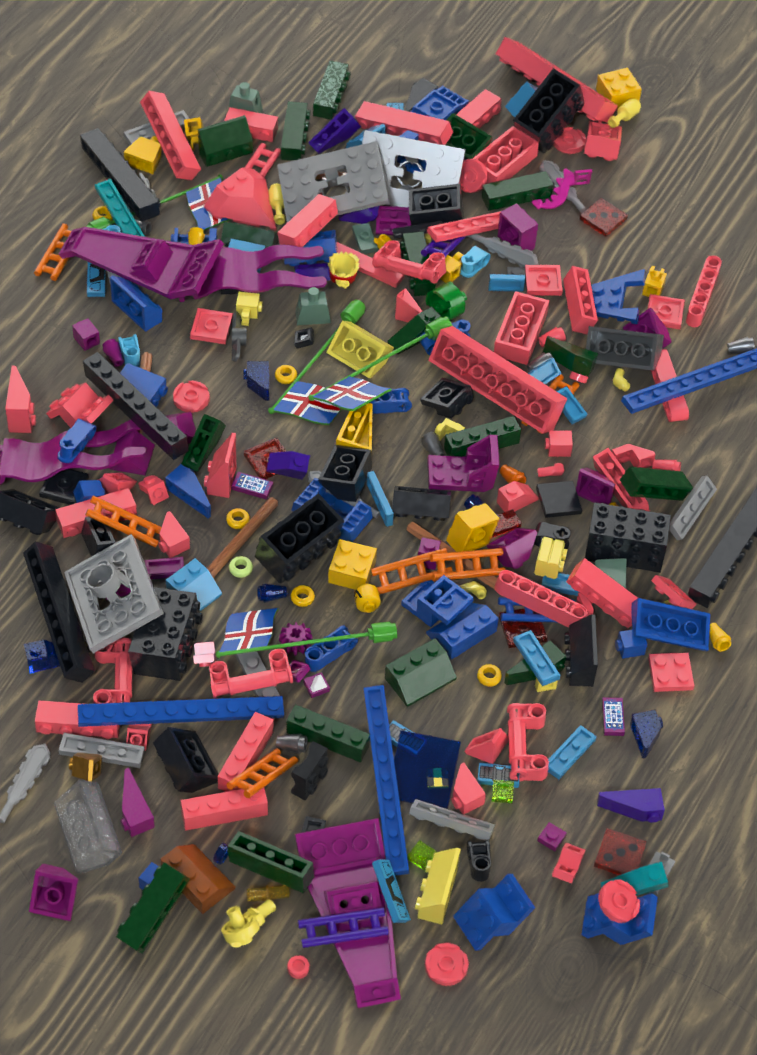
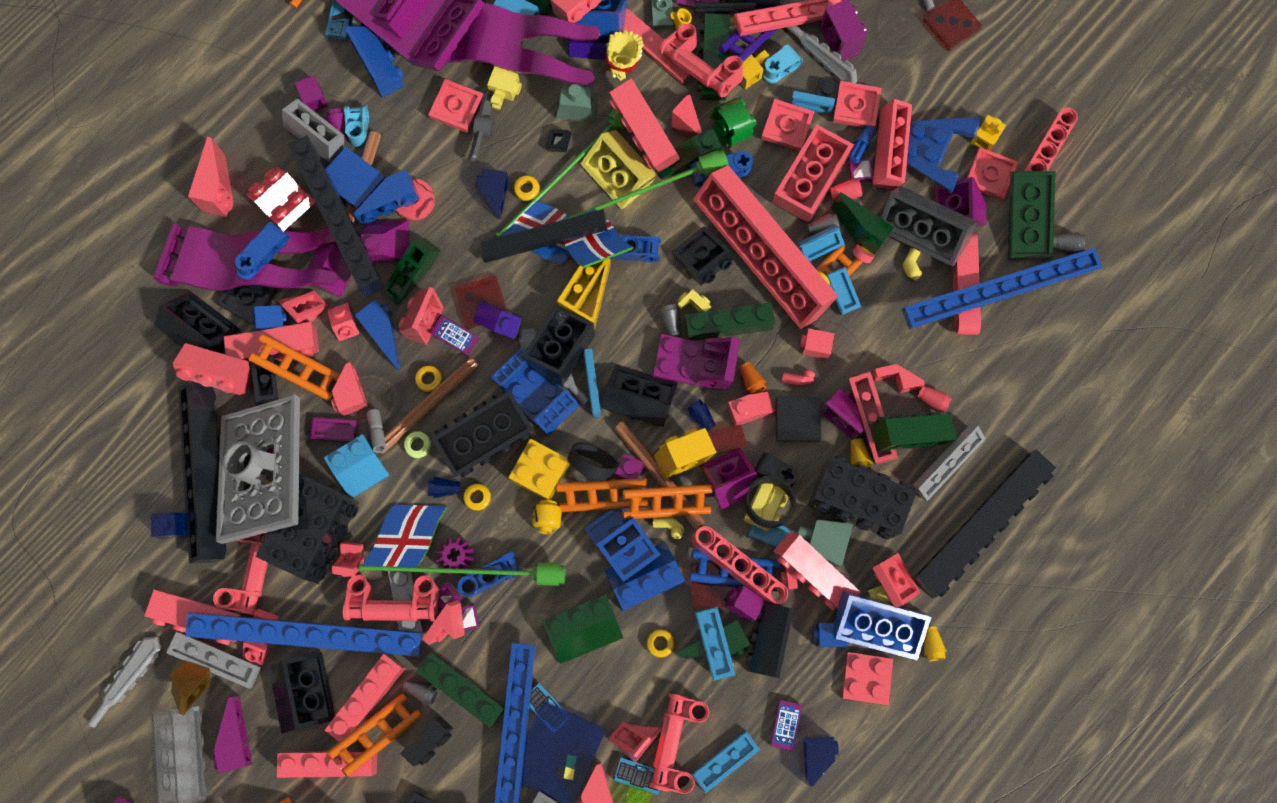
camera: 15 degrees right, 25 degrees up
(55, 530) = (213, 369): none -> coral slope
(82, 348) = (303, 121): none -> light grey brick
(175, 390) = (390, 195): none -> blue slope
(201, 555) = (377, 433): none -> light grey piece
(303, 680) = (448, 622): none -> coral slope
(311, 400) = (544, 236): none -> black tile
(377, 309) = (640, 120): none -> coral brick
(396, 547) = (589, 469): none -> black tyre
(490, 301) = (787, 125): none -> coral plate
(552, 629) = (744, 603): none -> magenta brick
(554, 561) = (784, 486): none -> black tyre
(555, 304) = (861, 144): none -> blue axle
(559, 321) = (861, 171): none -> tile
(705, 329) = (1031, 214): none -> dark green tile

